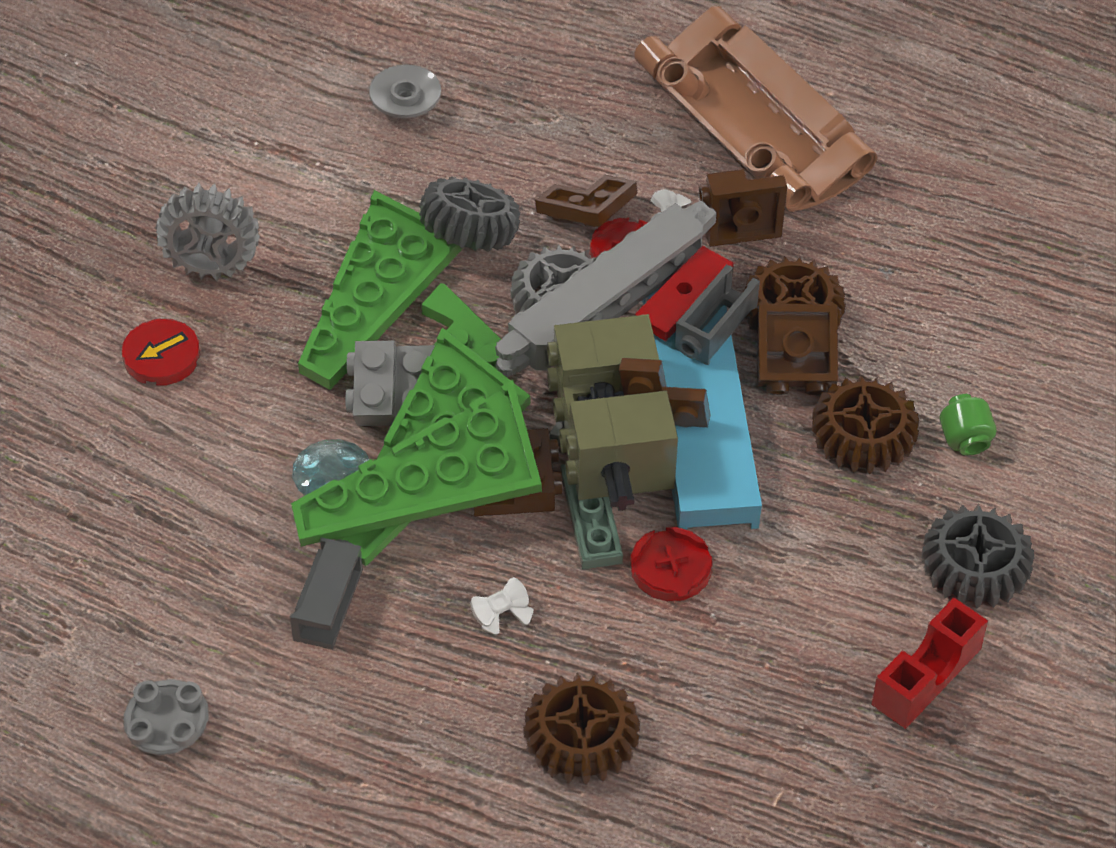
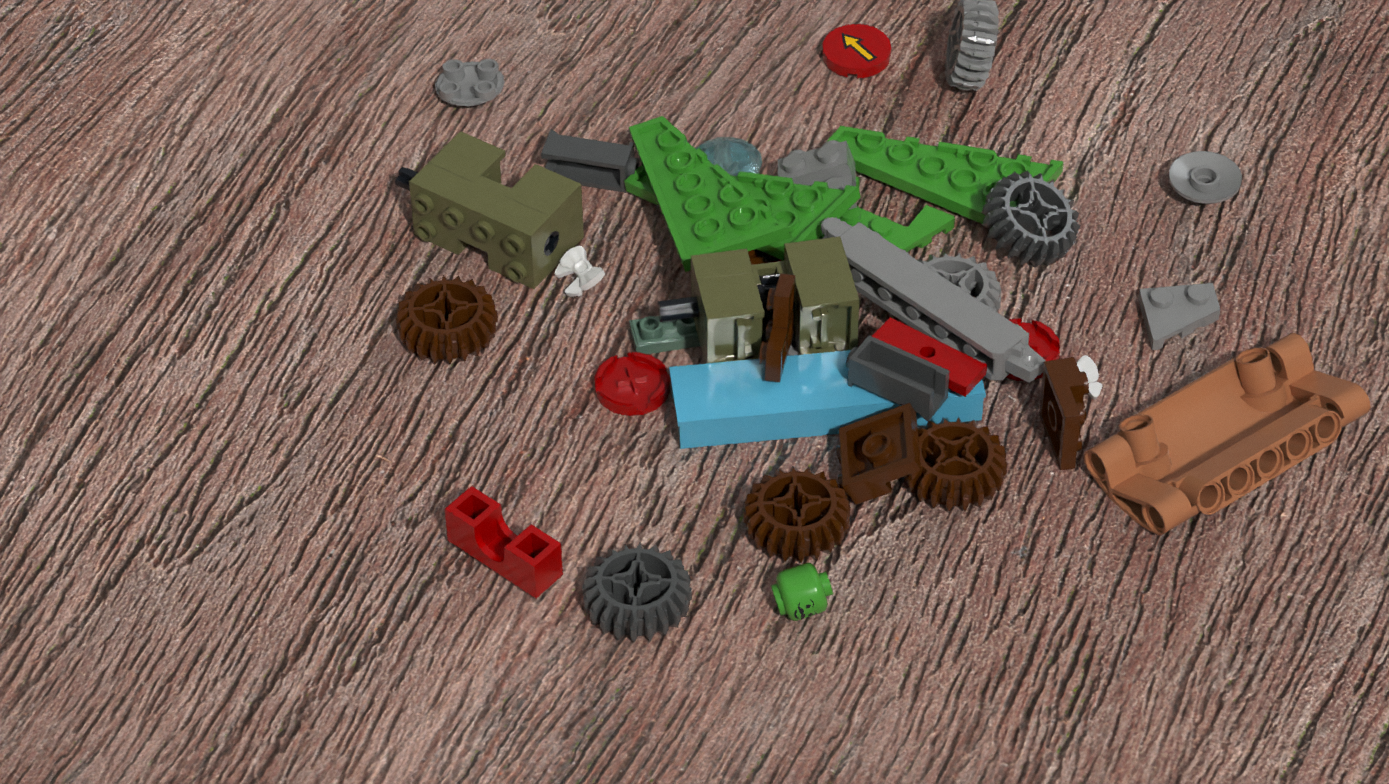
camera: 90 degrees right, 5 degrees down
(407, 699) = (522, 228): none -> olive piece
(581, 135) = (1177, 310): none -> light grey wing
(587, 206) = (1065, 310): reddish brown plate -> none

